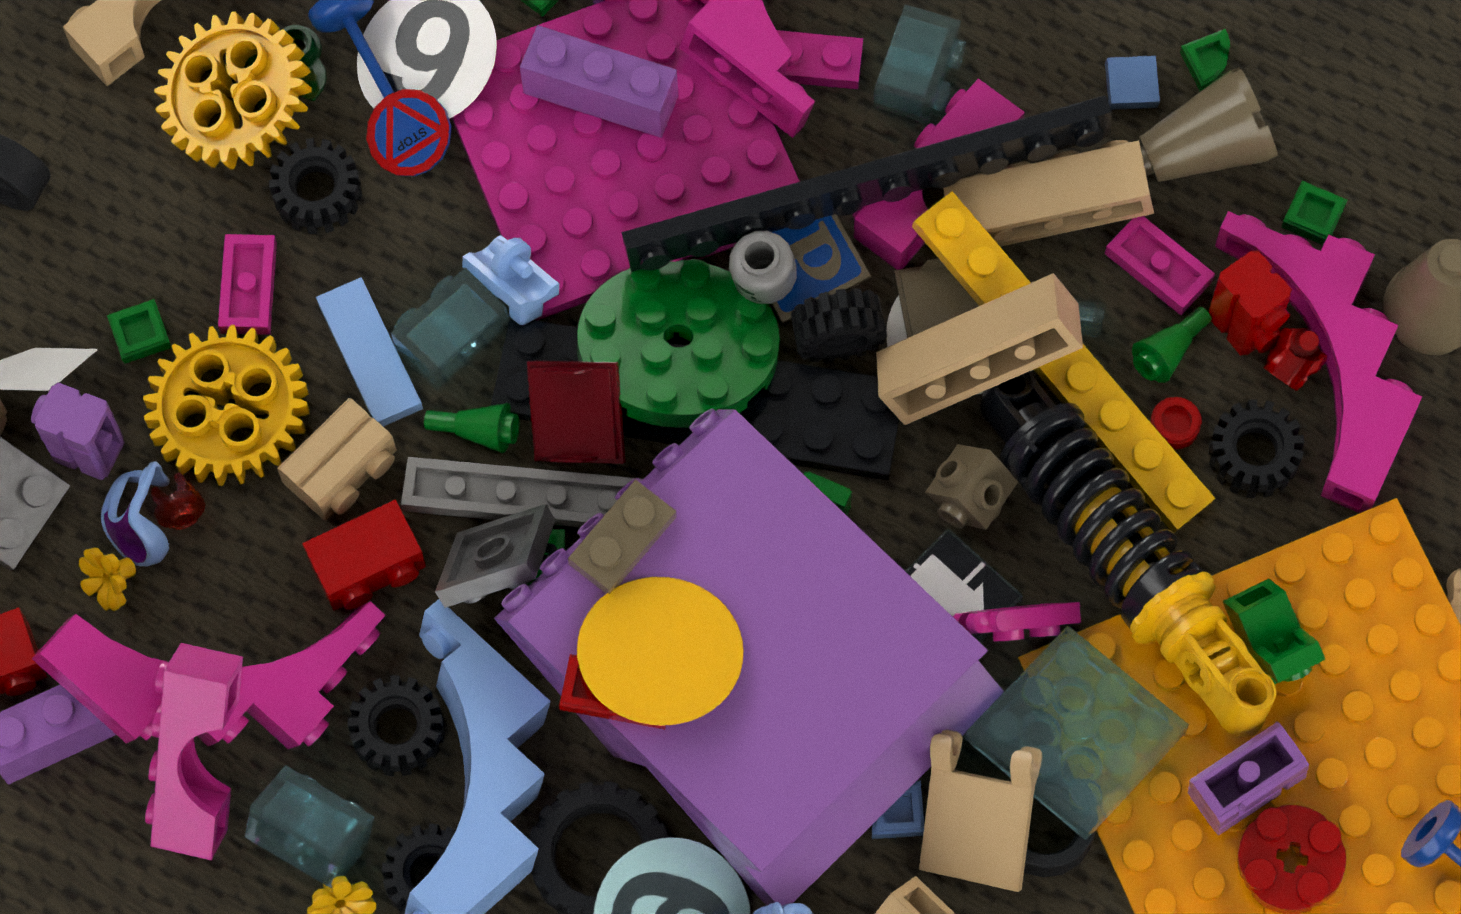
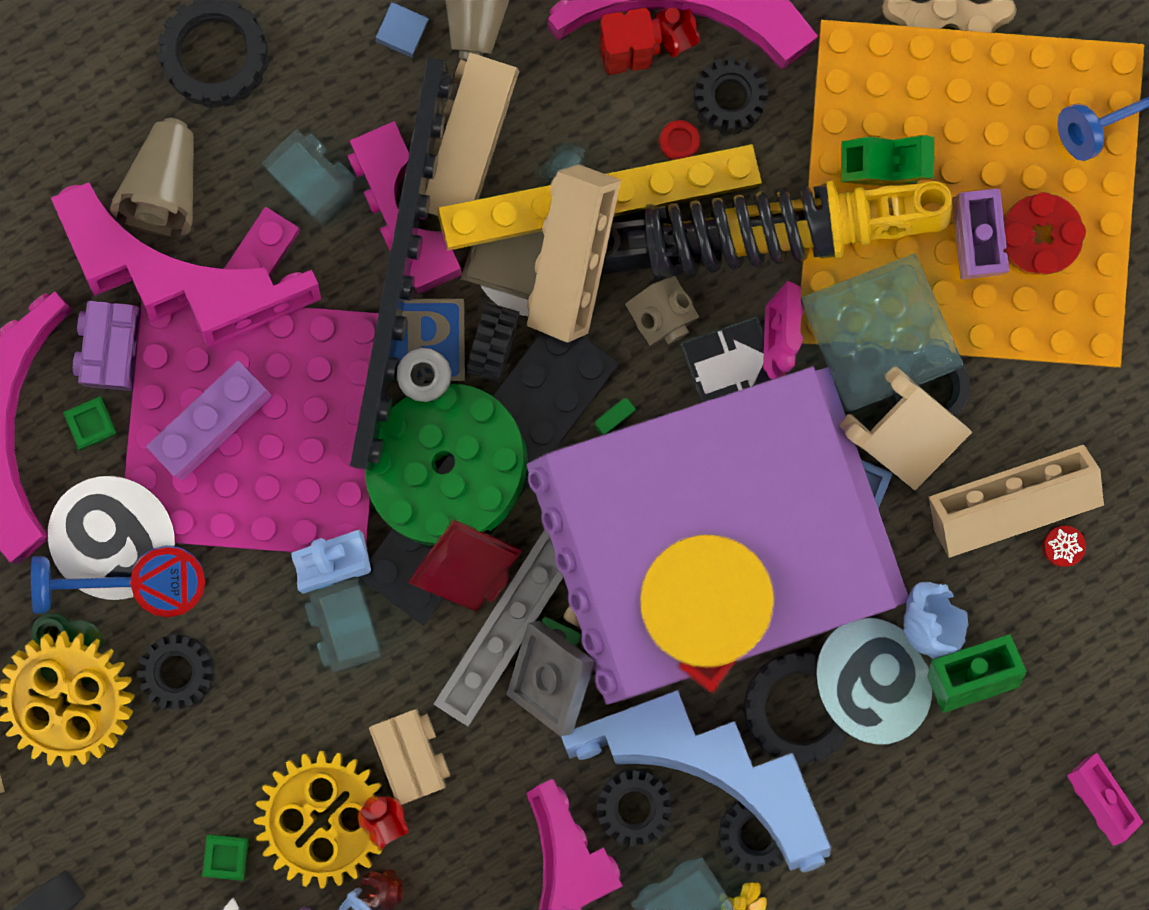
camera: 70 degrees left, 15 degrees up
(247, 283) = (230, 759): dark pink plate -> none
(252, 457) = (383, 820): none -> red arm
(365, 556) = (494, 771): red brick -> none
(369, 352) = (330, 693): light blue tile -> none
(486, 426) = (435, 634): green cone -> none
(622, 537) = (606, 585): dark tan plate -> none
(1159, 264) = (556, 87): dark pink plate -> none
(1161, 353) = (623, 120): green cone -> none

